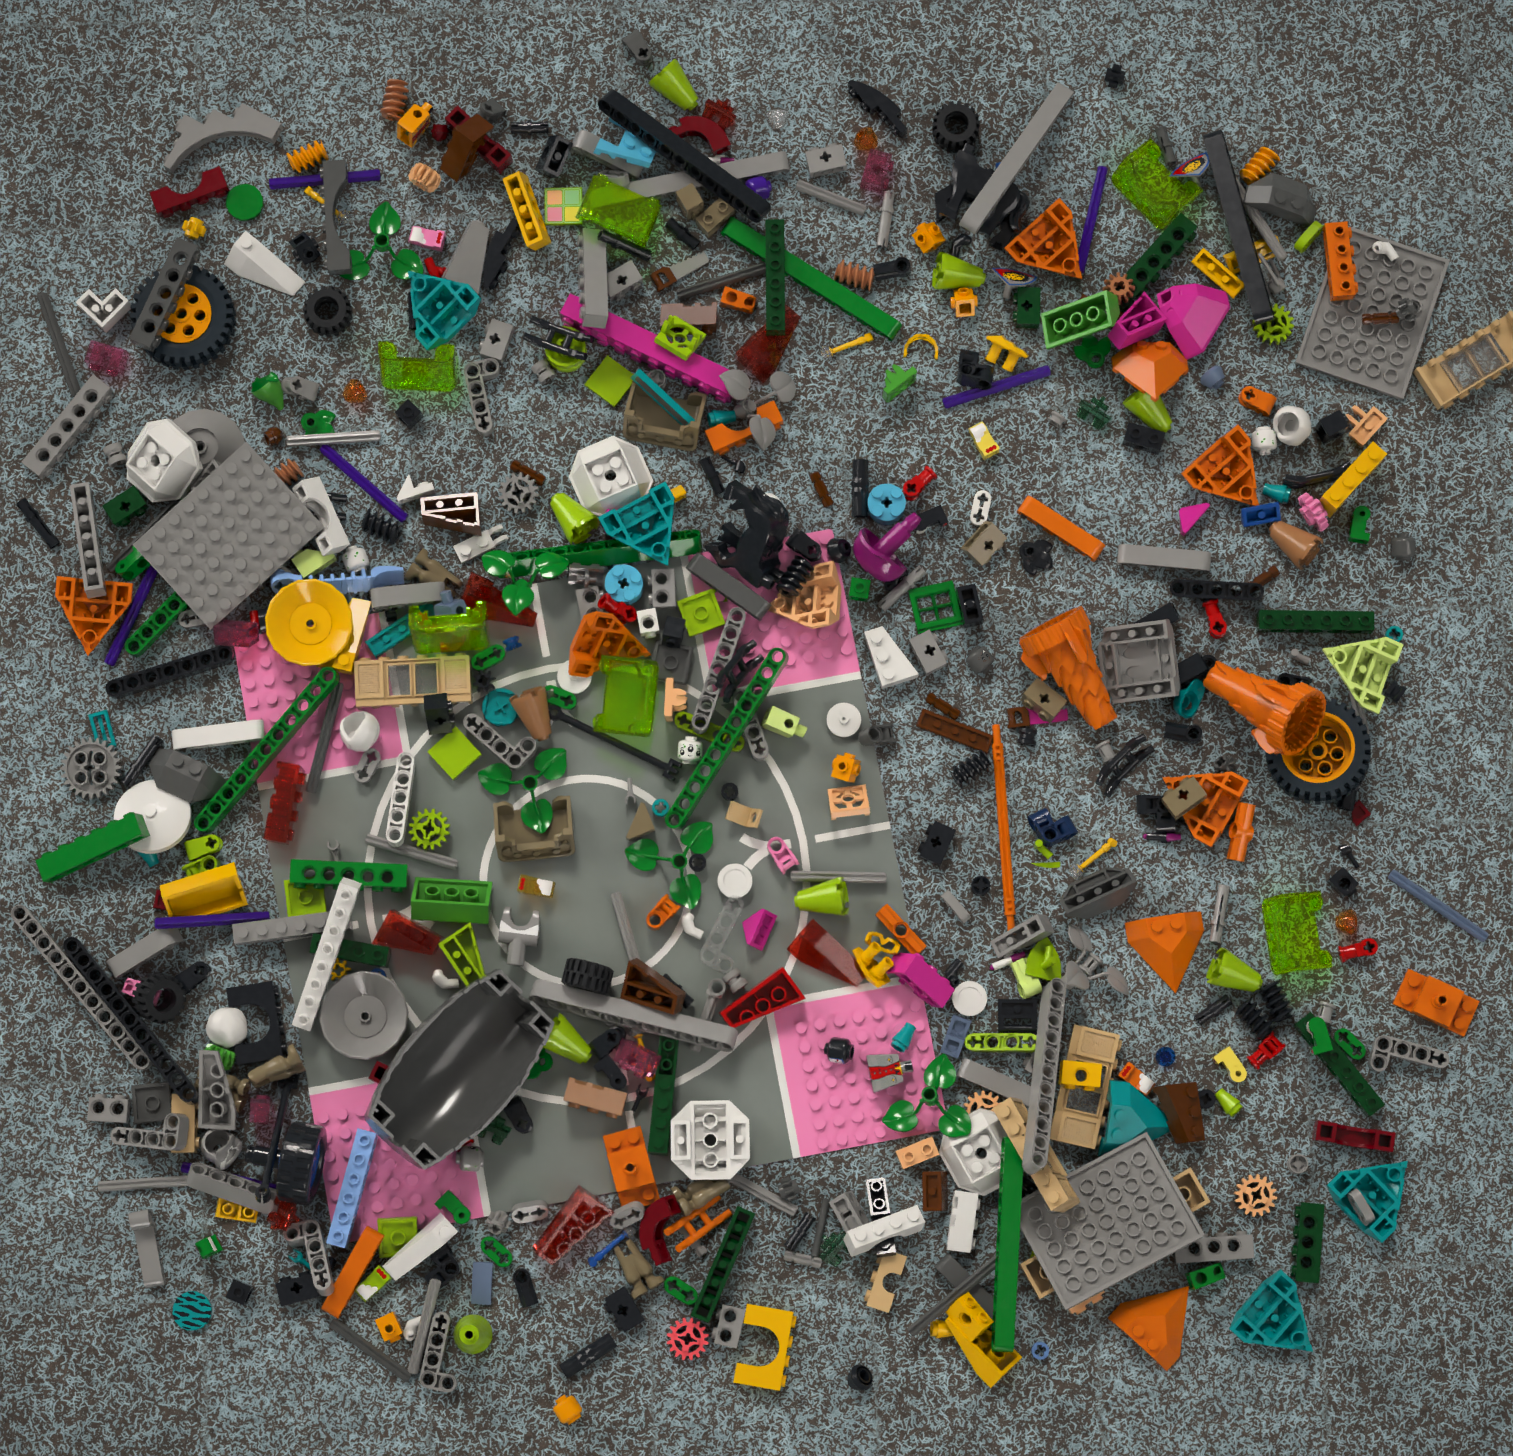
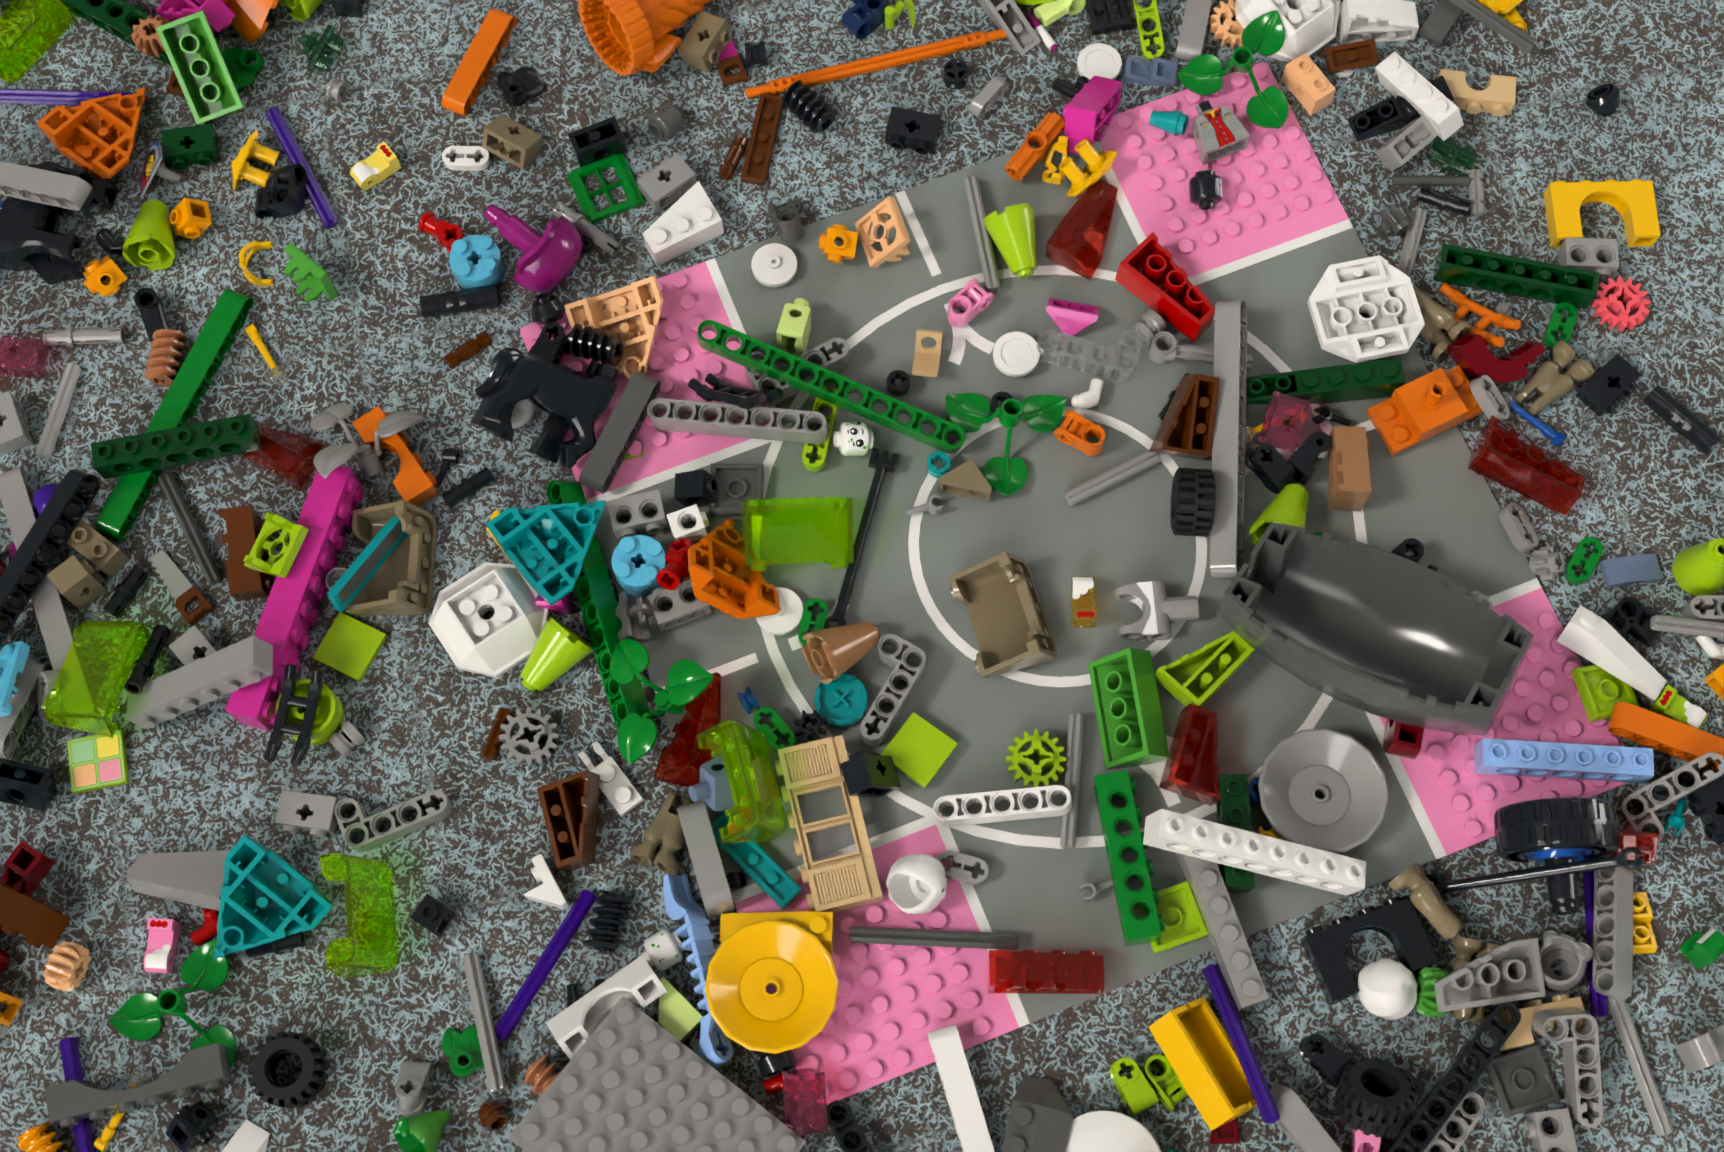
camera: 100 degrees left, 10 degrees down
(258, 752) = (981, 1027): green beam -> none
(262, 1110) = (1493, 909): clear pink brick -> none
(354, 391) = (409, 1004): clear orange cone -> none
(443, 982) = (1243, 699): white arm -> none
(460, 1212) = (1545, 619): green leg -> none
(495, 261) = (182, 838): black slope -> none
(525, 1289) = (1619, 513): black piece -> none
(526, 210) = (106, 807): yellow brick -> none
(539, 813) = (909, 615): green plant -> none
(674, 700) = (790, 468): light nougat piece -> none
(701, 612) = (659, 461): lime tile -> none
(717, 417) = (384, 489): teal cone -> none
(737, 300) = (214, 496): orange leg -> none
(859, 589) = (597, 275): green brick -> none
(930, 518) = (480, 202): black leg -> none

